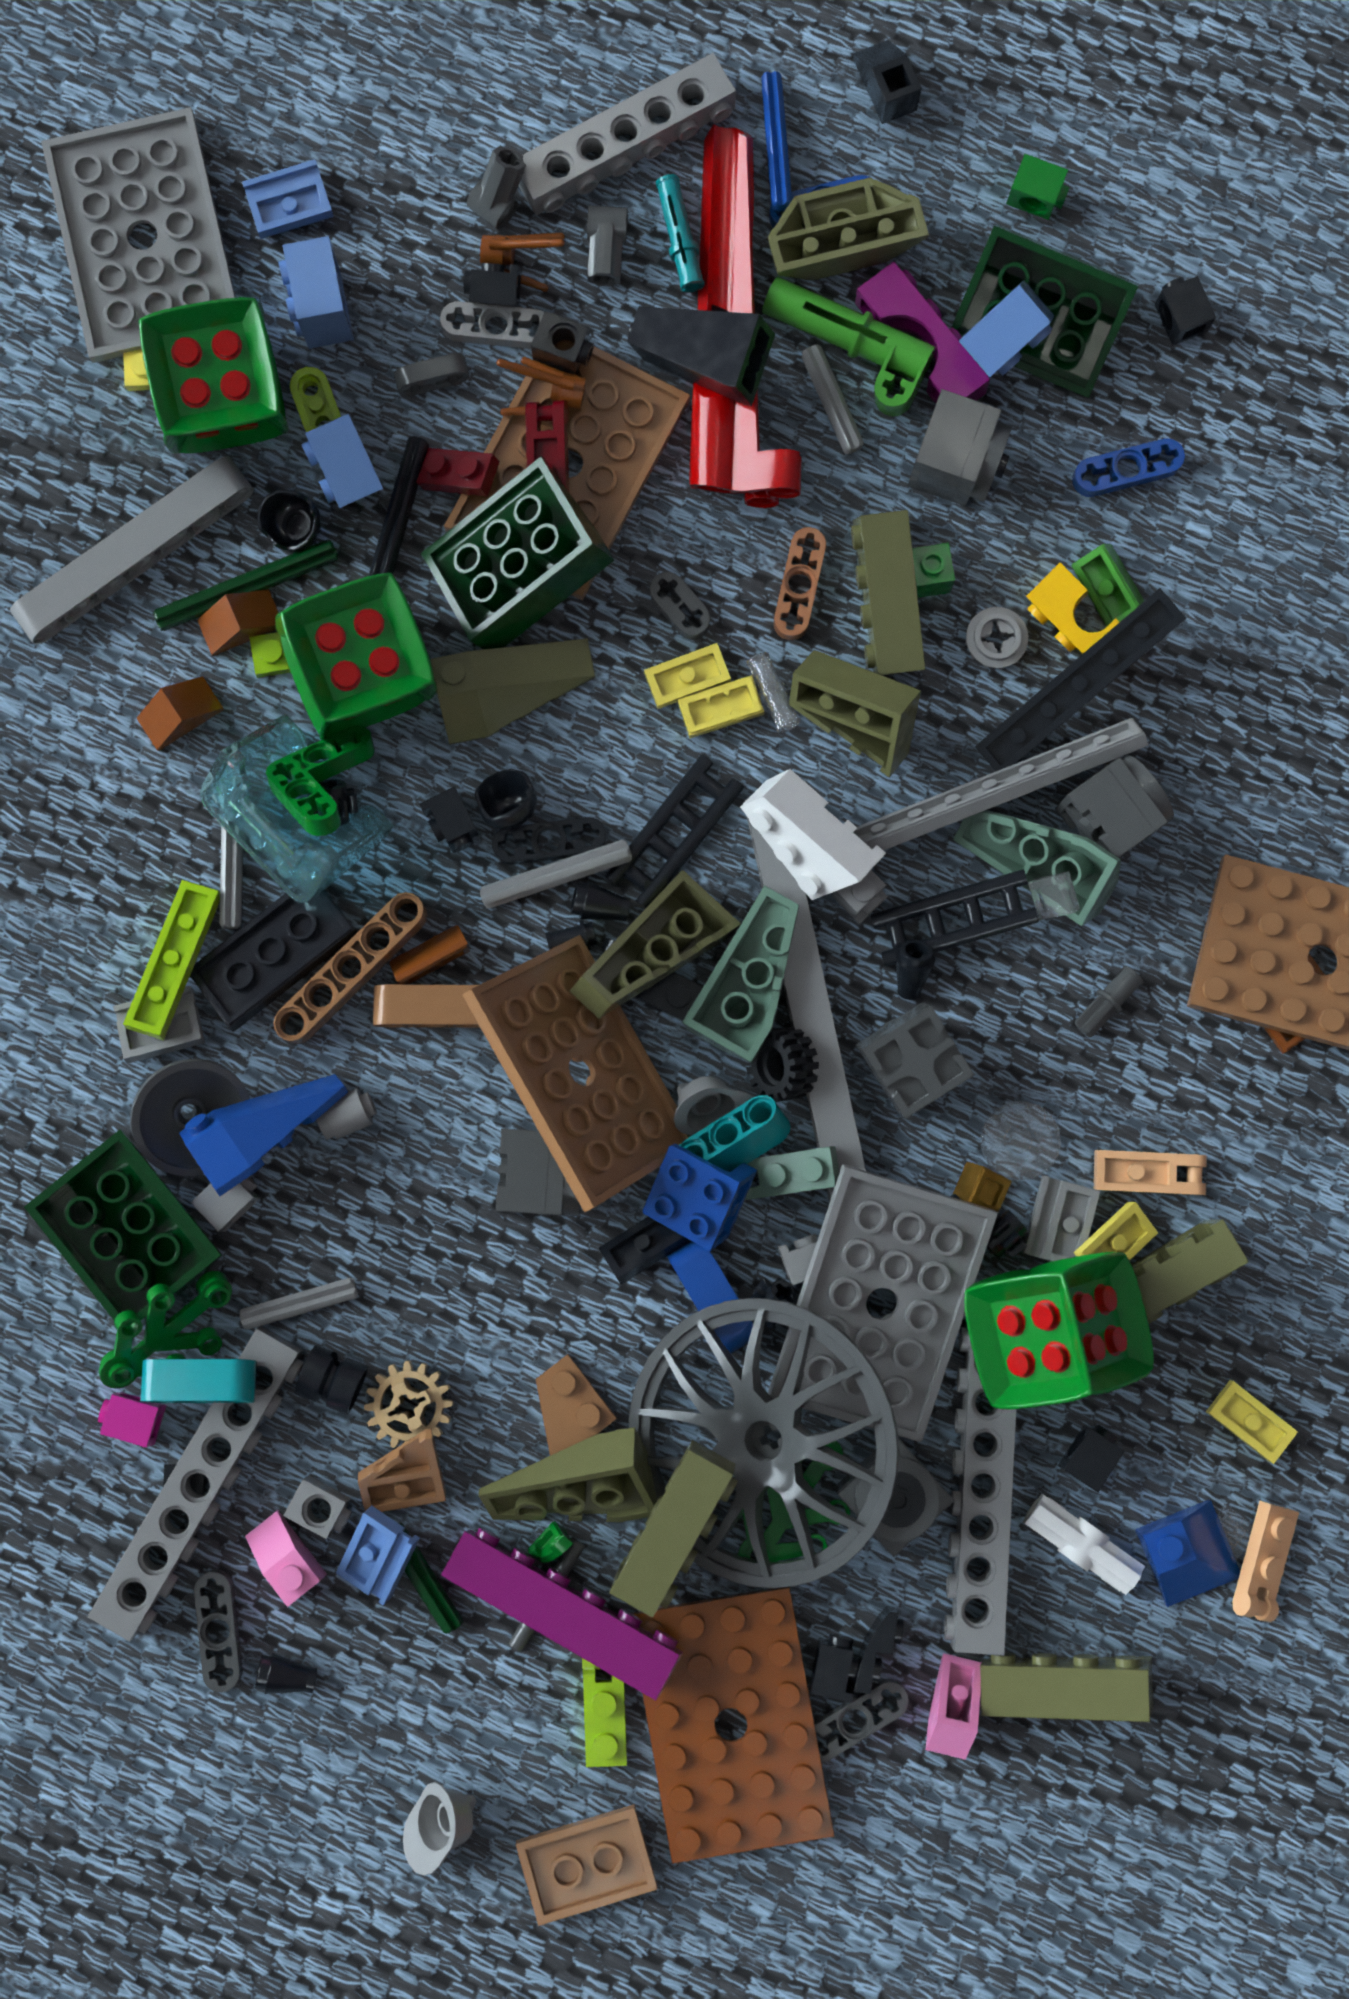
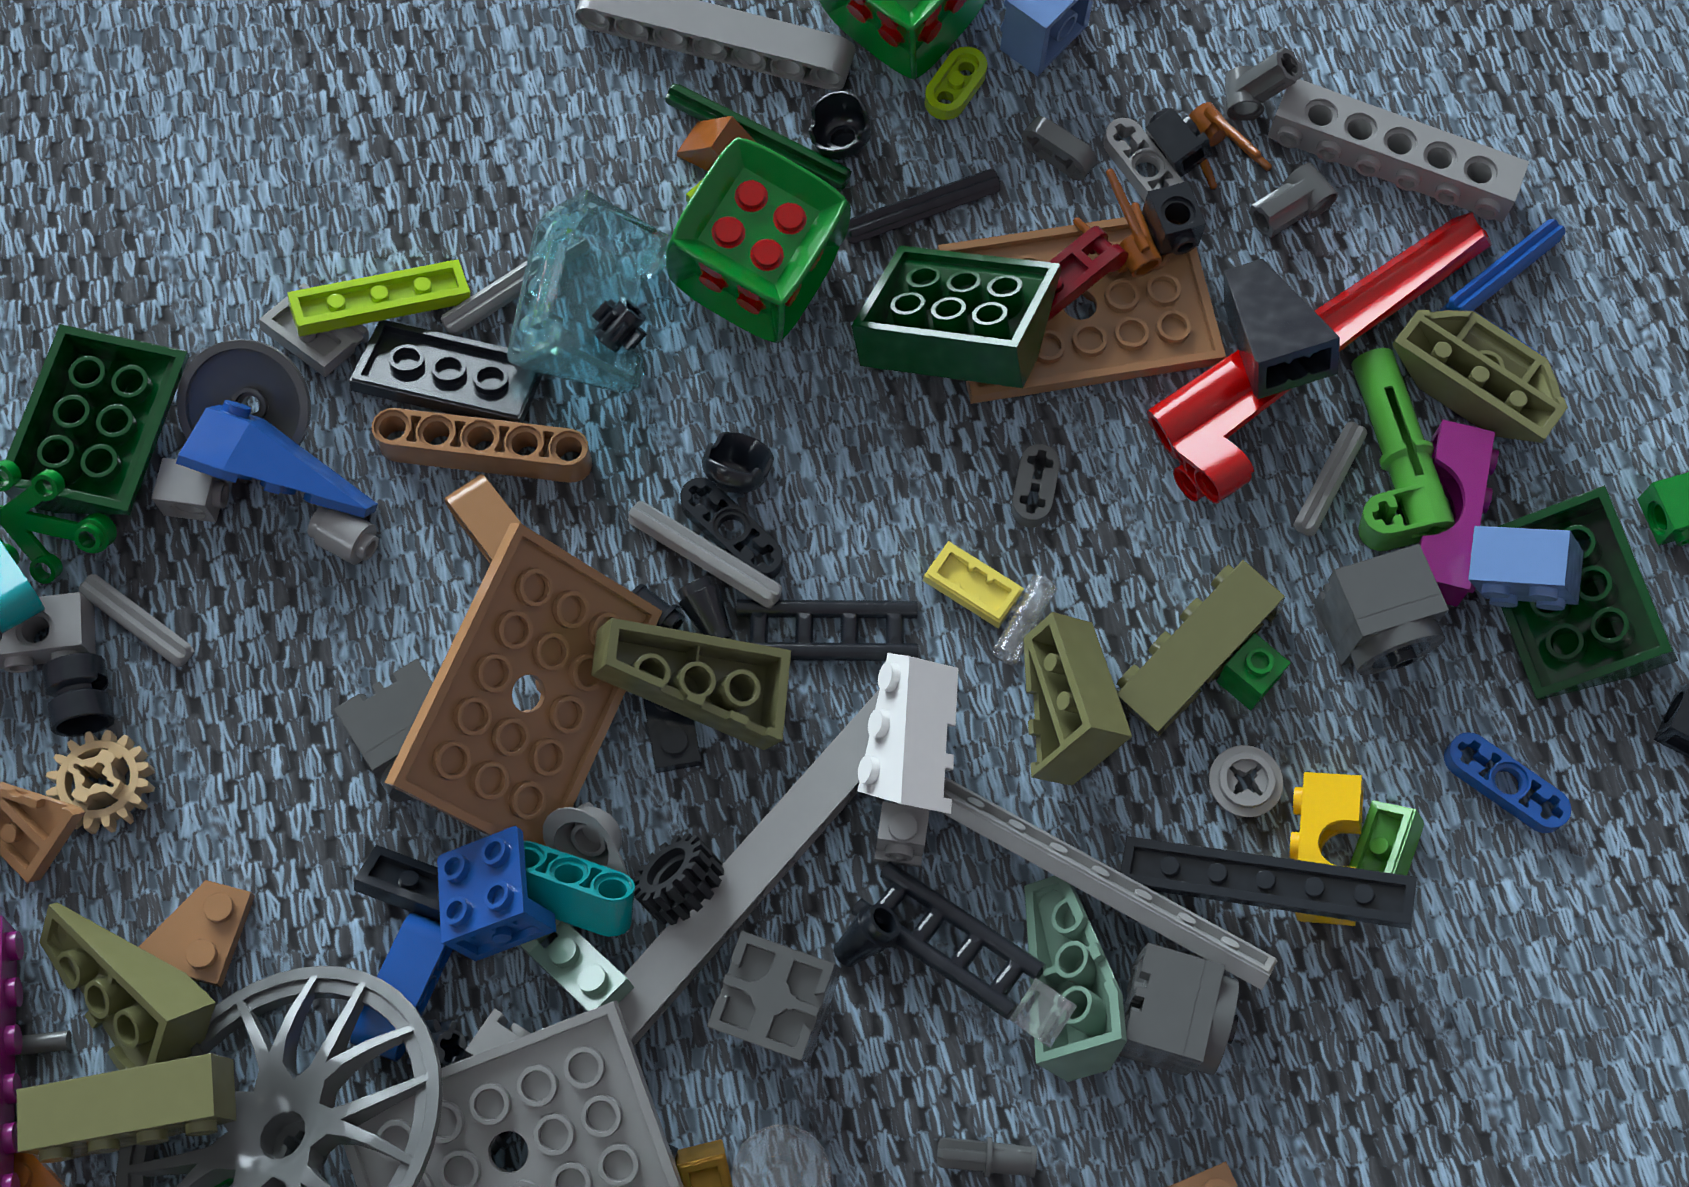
camera: 50 degrees right, 15 degrees down
(178, 711) = (608, 159): dark orange slope -> none
(342, 460) = (921, 121): medium blue brick -> none
(343, 752) = (617, 276): green beam -> none
(429, 956) = (545, 505): dark orange slope -> none
(450, 820) = (683, 431): black brick -> none
(458, 471) = (994, 222): dark red plate -> none
(499, 685) = (832, 384): olive wedge -> none
(550, 1543) = (49, 1011): green tile -> none
(680, 234) = (1346, 263): teal pin -> none
(687, 675) = (977, 534): light yellow plate -> none
(744, 988) = (723, 785): sand green wedge -> none
(815, 559) = (1166, 548): nougat beam -> none
(889, 80) = (1643, 320): black slope -> none

